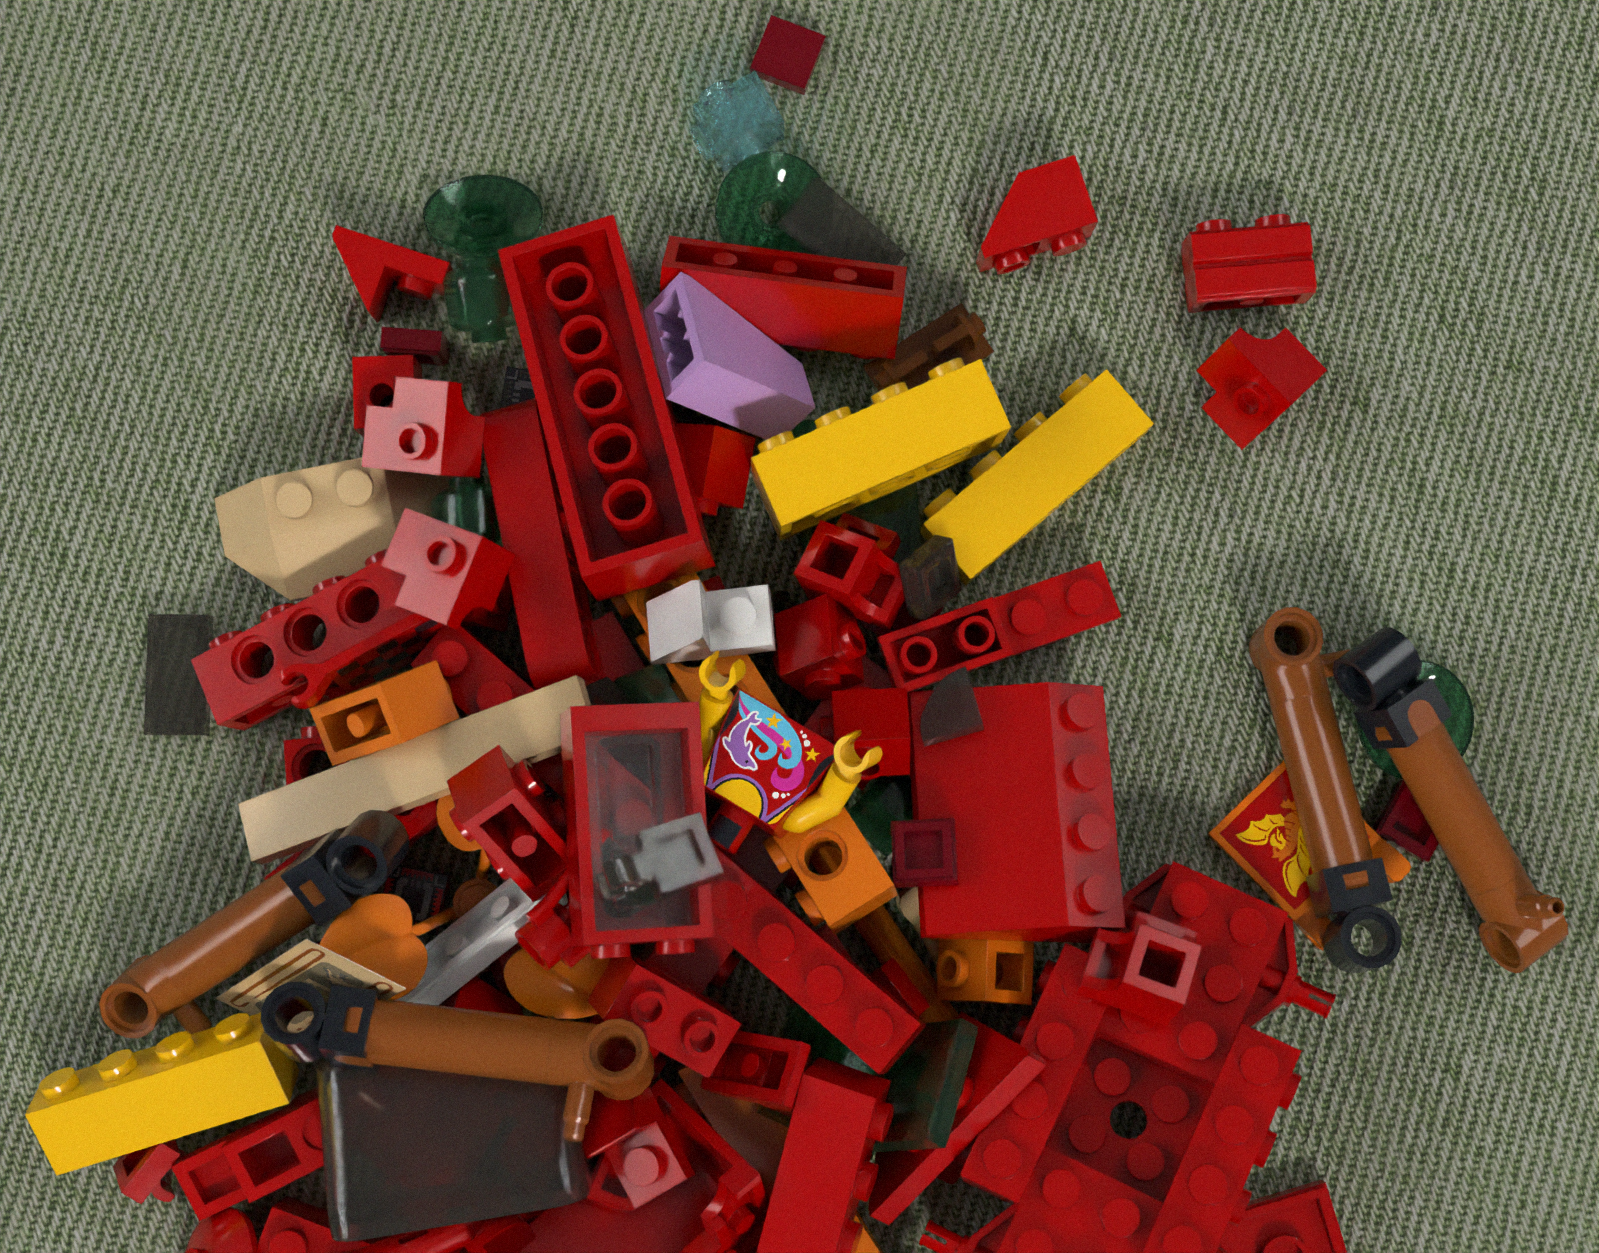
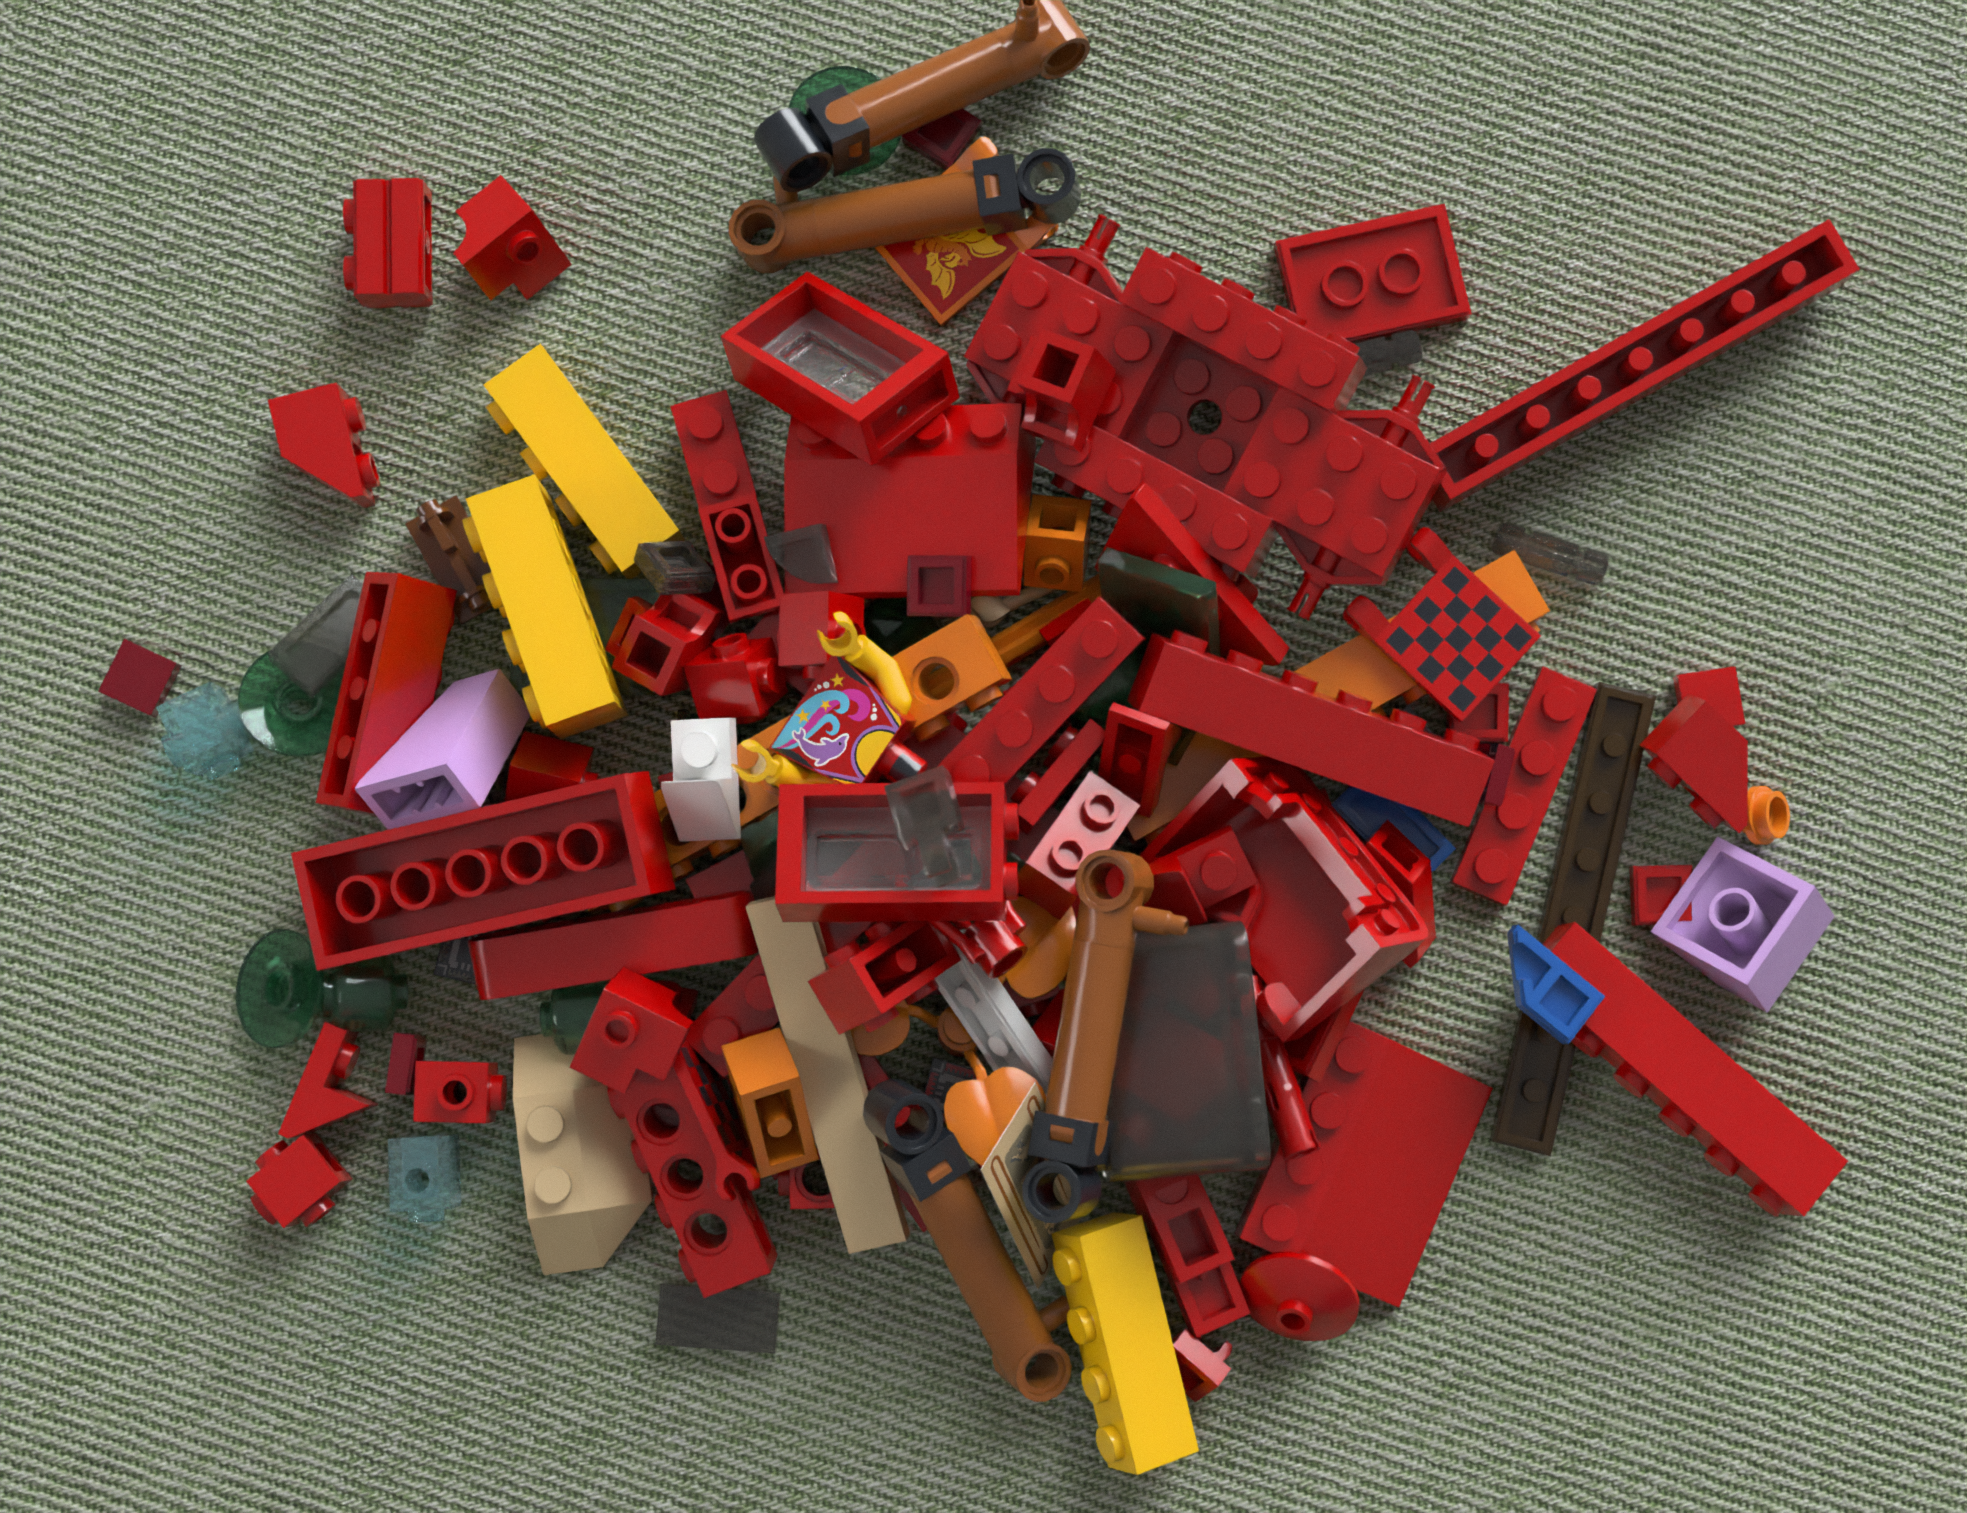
camera: 80 degrees left, 0 degrees up
(293, 249) = (297, 1182): none -> red brick
(303, 372) = (440, 1160): none -> clear light blue brick
(424, 431) = (495, 1049): brick -> none
(753, 996) = (1065, 764): none -> red plate
(1149, 735) = (840, 367): none -> red piece

